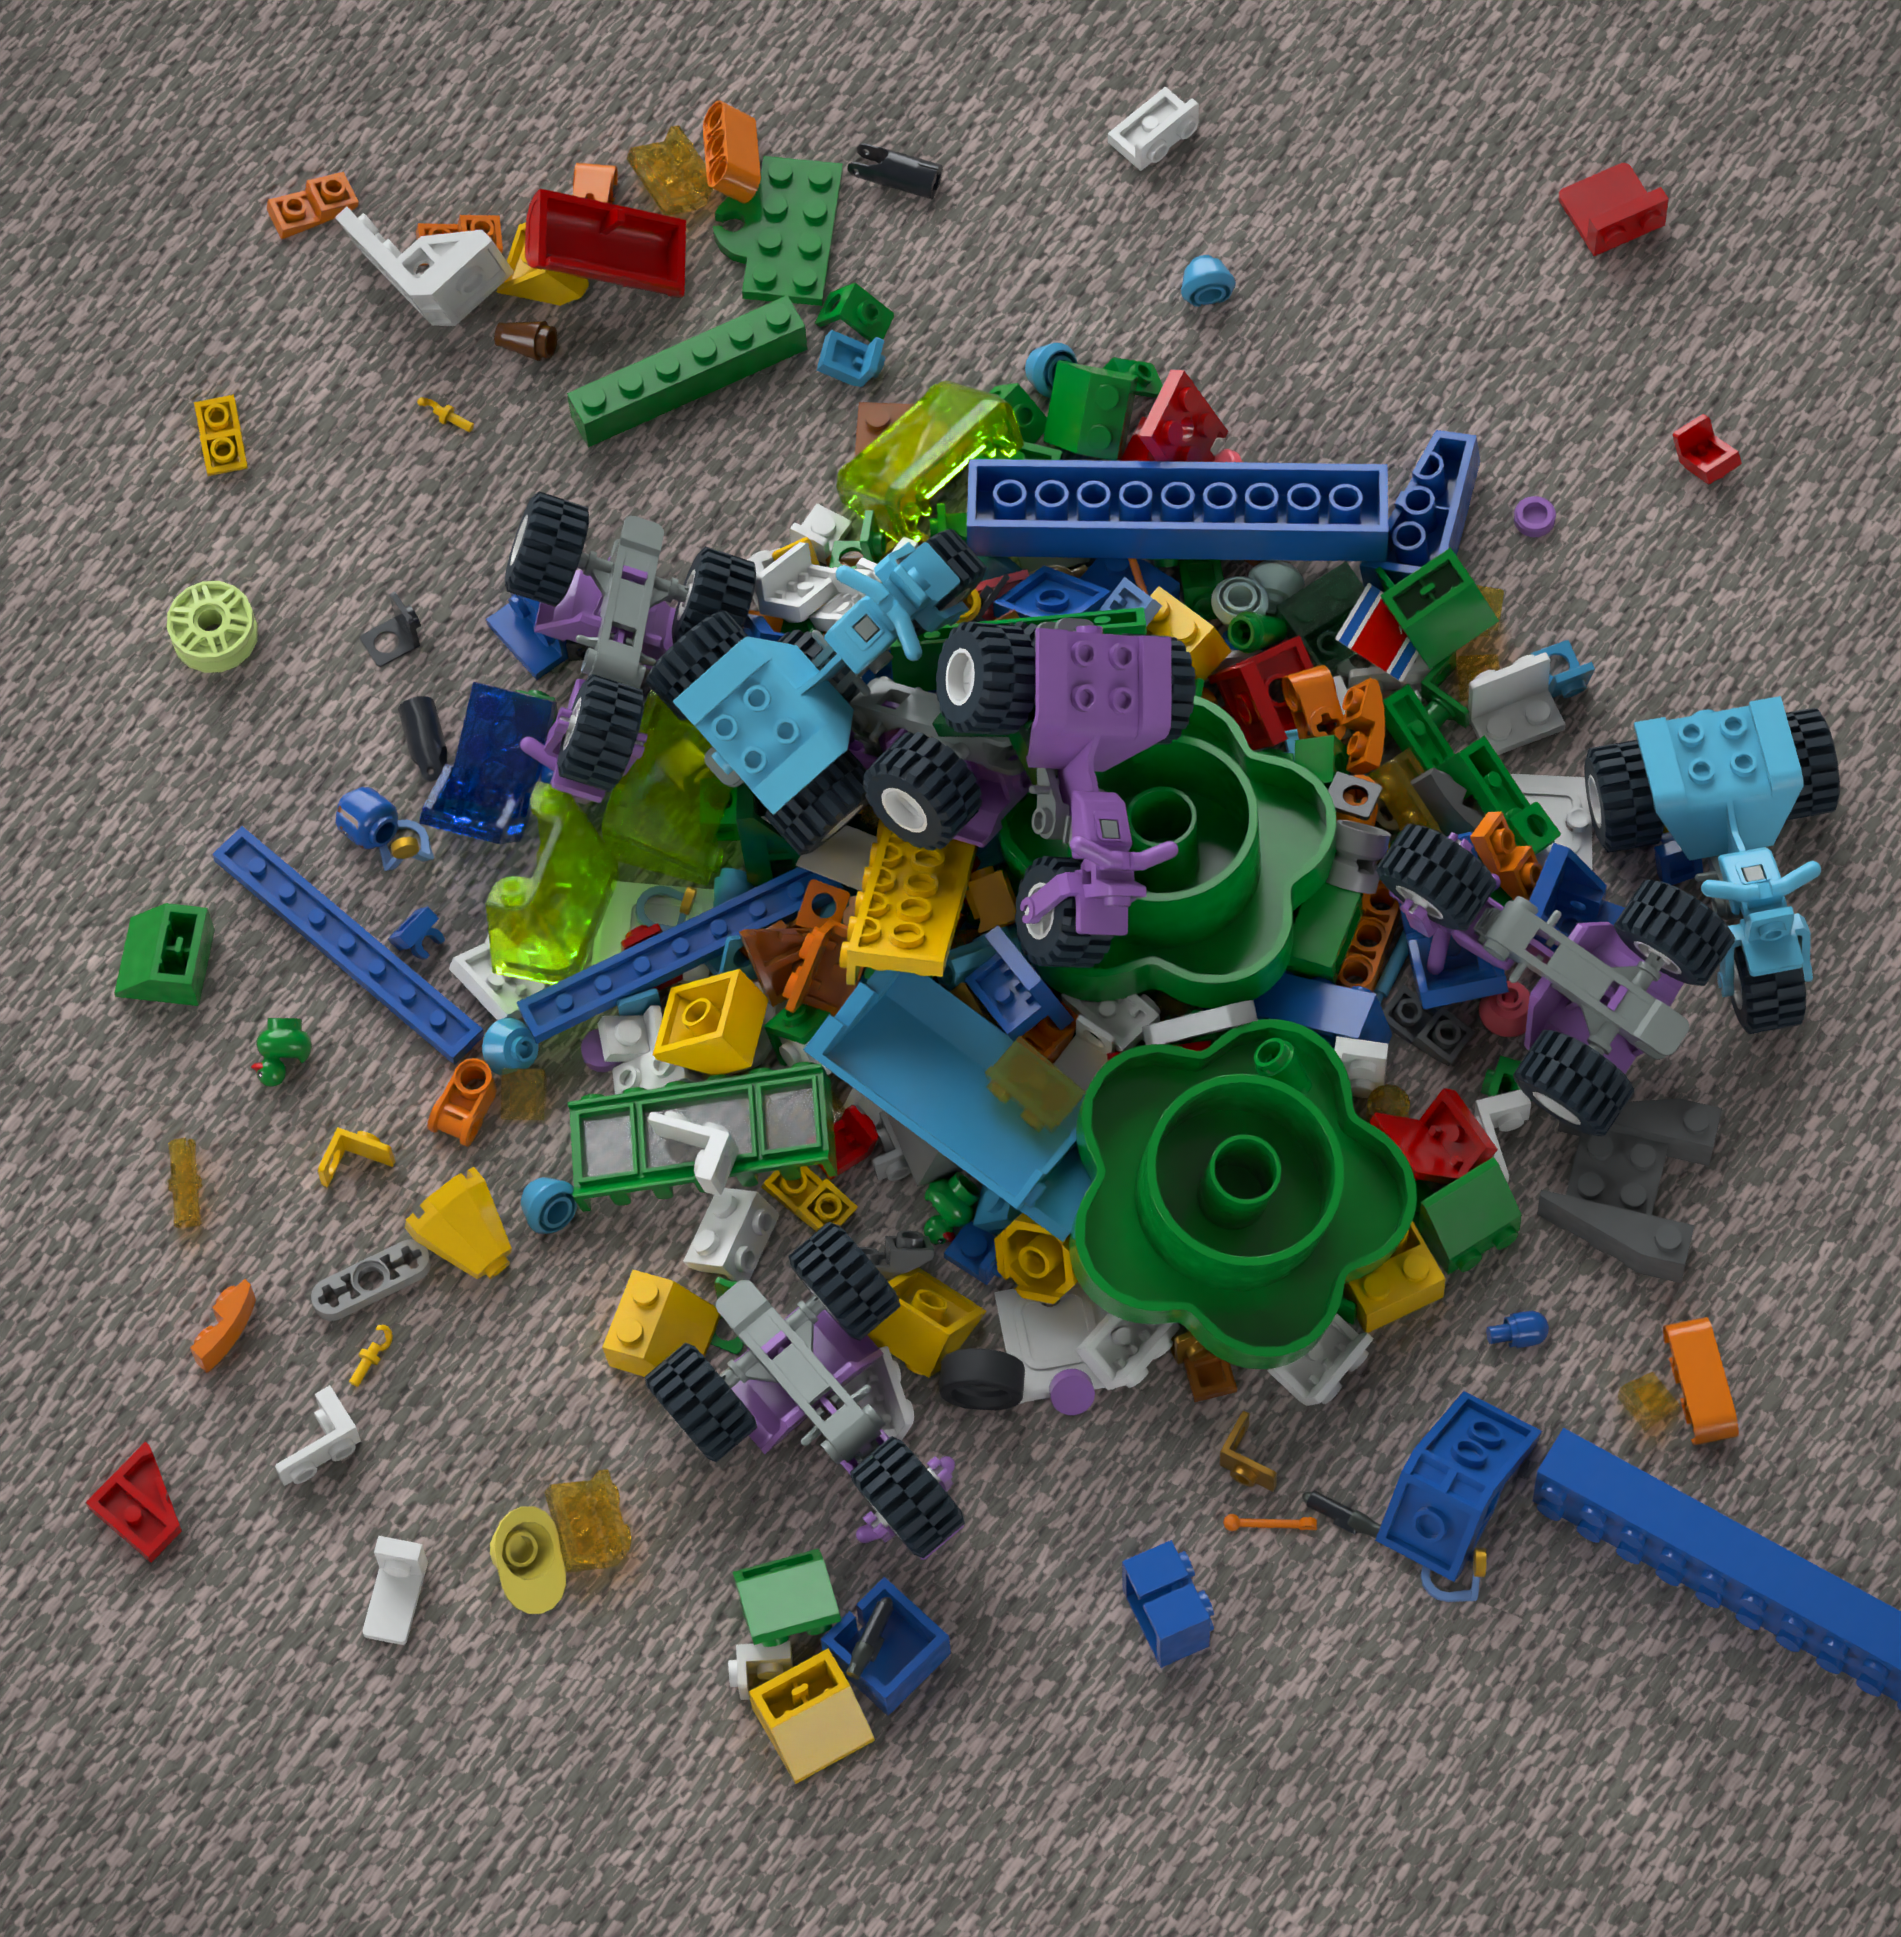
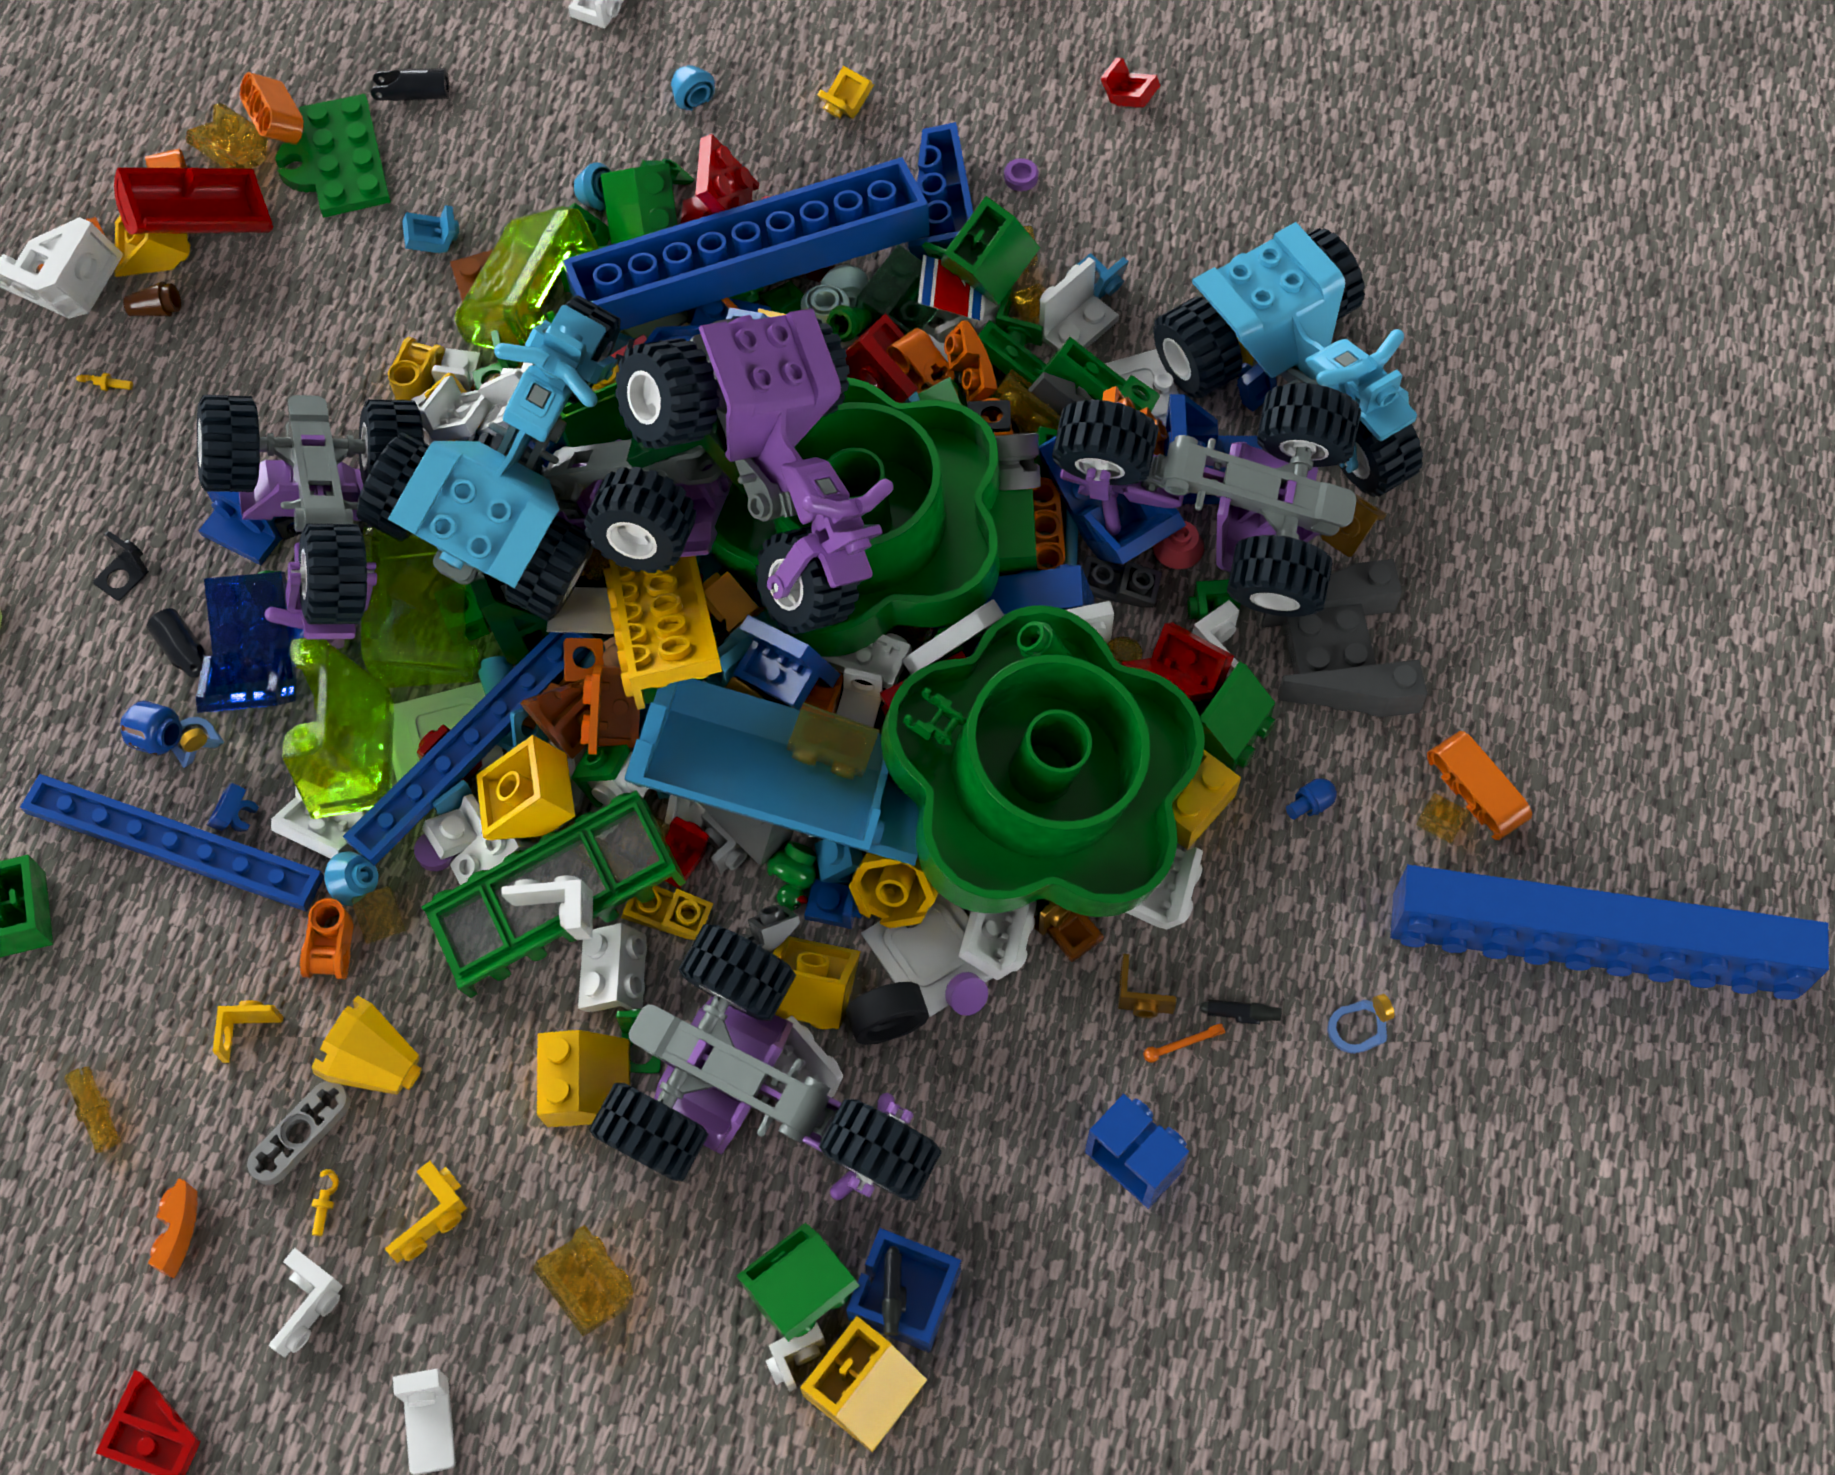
camera: 25 degrees left, 0 degrees up
(280, 1040) = (141, 946): green animal -> none
(476, 1412) = (441, 1218): none -> yellow bracket
(529, 1560) = (543, 1340): light yellow piece -> none
(548, 1204) = (437, 1003): dark azure cone -> none
(686, 906) = (461, 697): piece -> none
(687, 371) = (297, 282): green brick -> none
(776, 513) = (413, 368): none -> yellow piece
(858, 311) = (421, 193): green bracket -> none
(1125, 1111) = (929, 729): none -> green piece
(1377, 350) = (846, 94): none -> yellow bracket
(1455, 1484) = (1330, 950): blue bracket -> none
(1709, 1051) = (1350, 538): none -> pearl gold bracket

